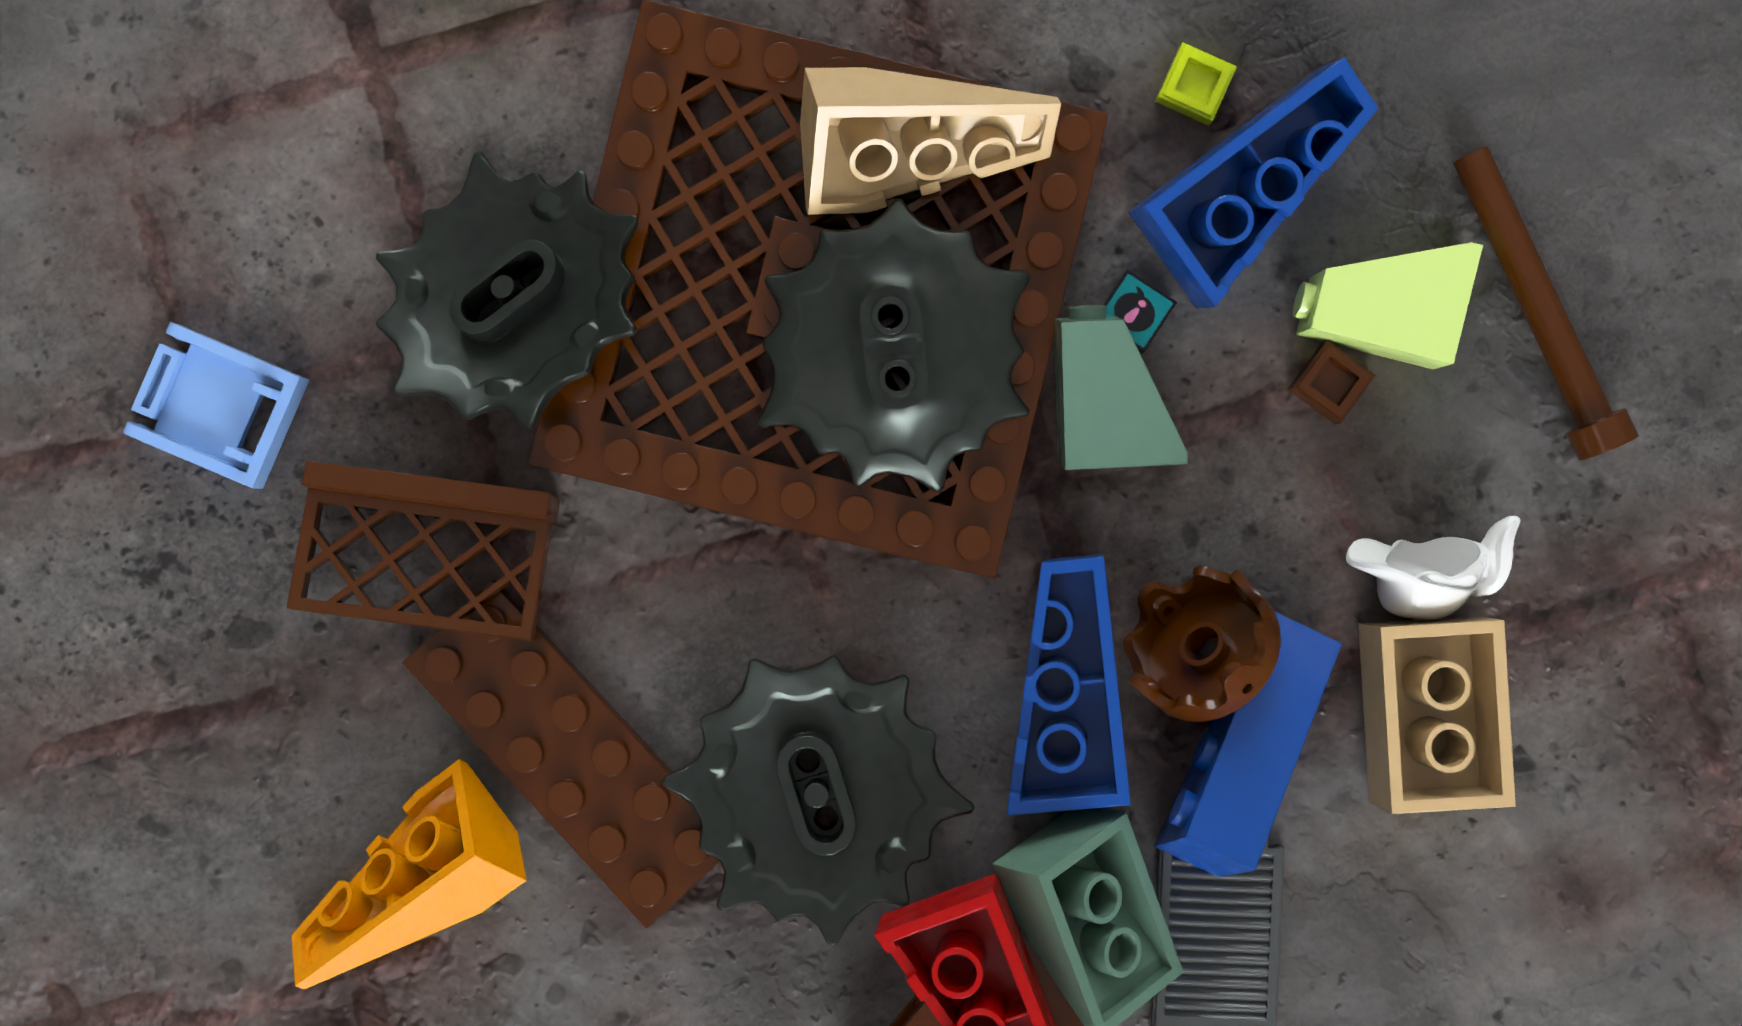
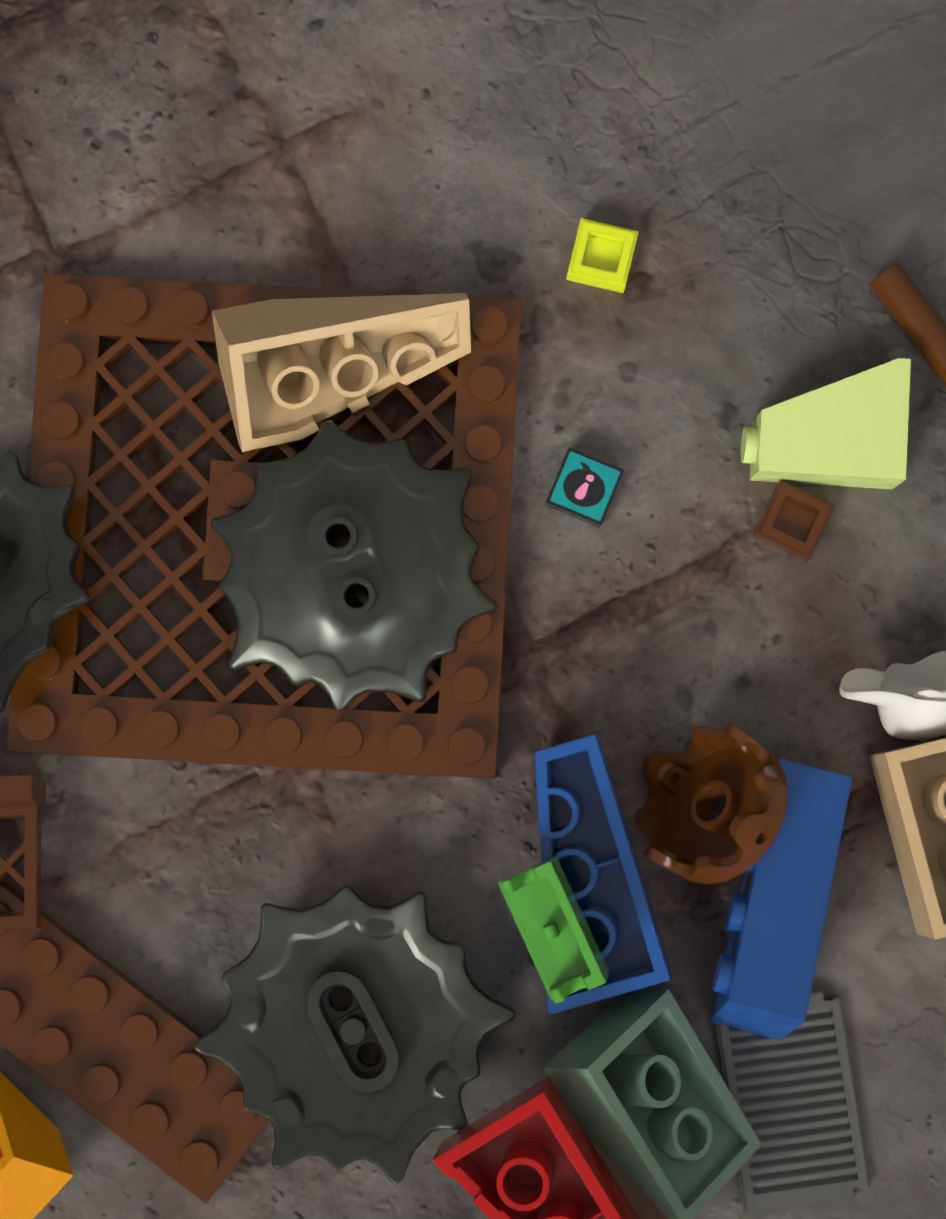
camera: 10 degrees left, 5 degrees down
(1029, 737) = (554, 929): none -> bright green hinge
(1107, 397) = (572, 577): sand green slope -> none
(1238, 193) = (660, 355): blue wedge -> none

